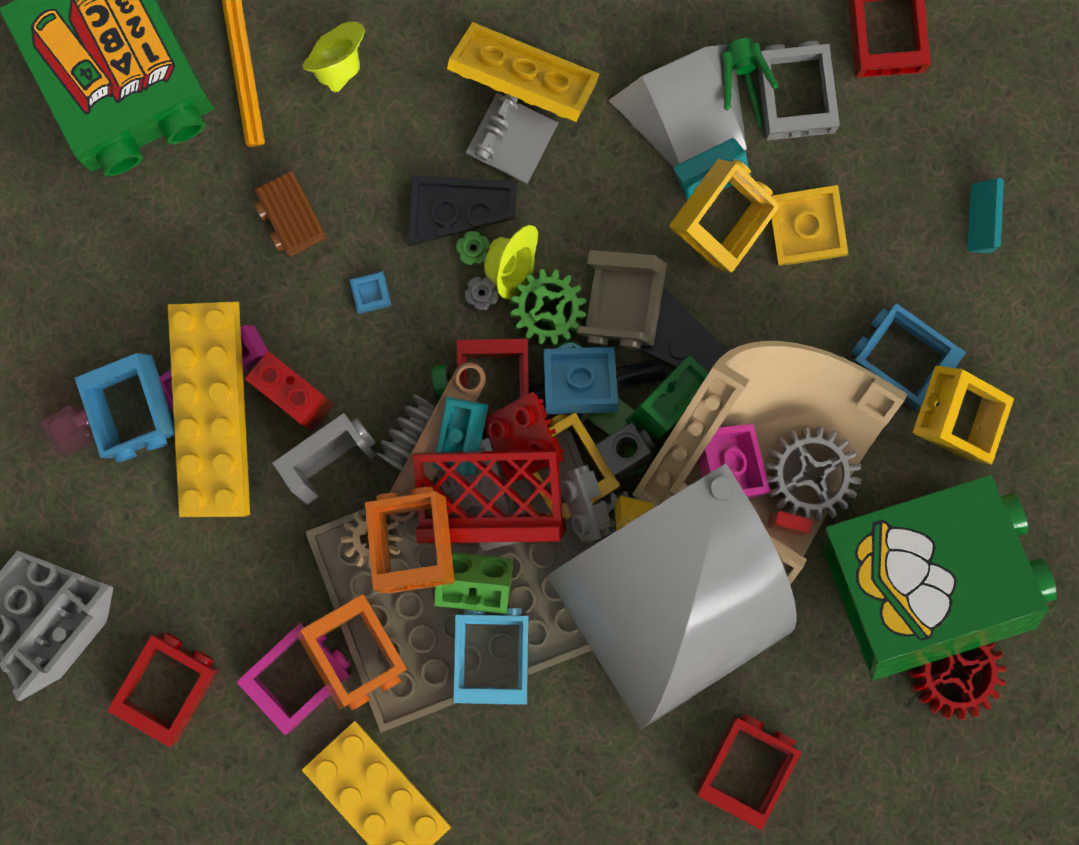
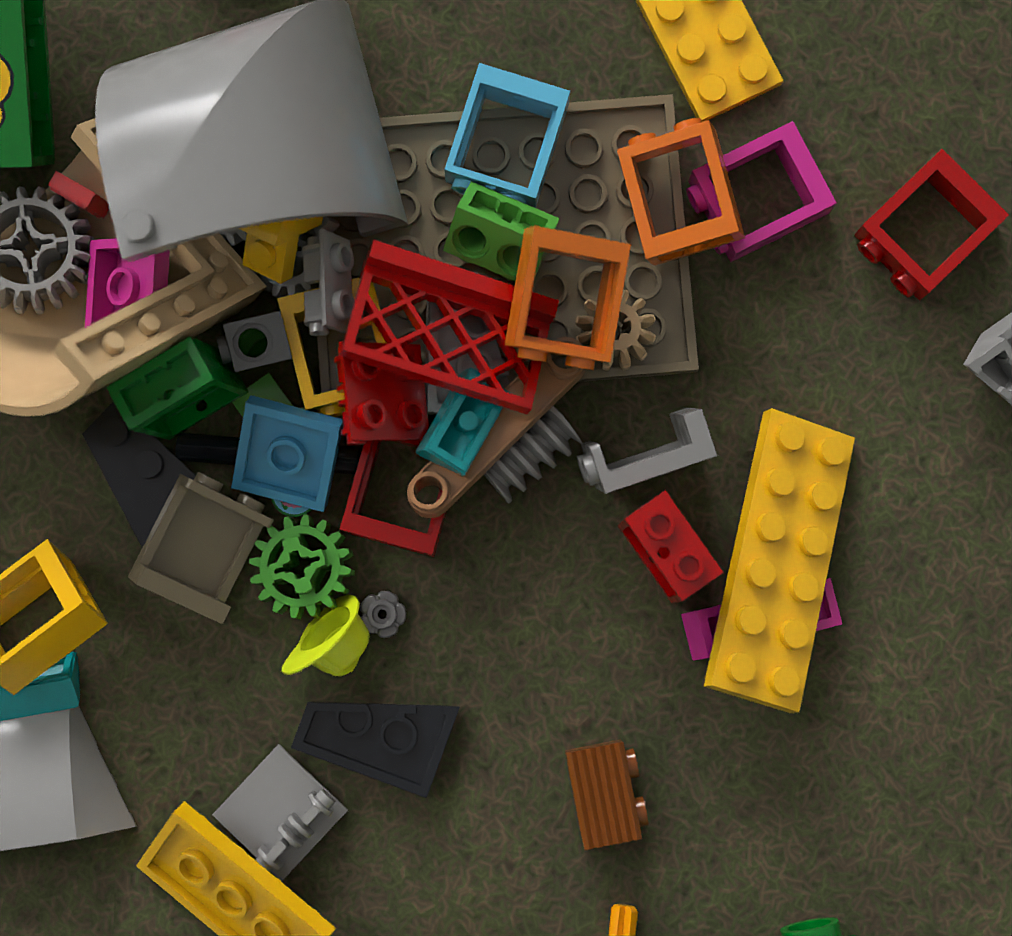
camera: 165 degrees left, 0 degrees up
(68, 429) = (969, 589): clear pink brick -> none
(99, 415) = (924, 595): dark azure window -> none
(370, 292) = (528, 658): dark azure tile -> none
(440, 378) = (468, 512): green tile -> none
(473, 238) = (375, 690): bright green plate -> none

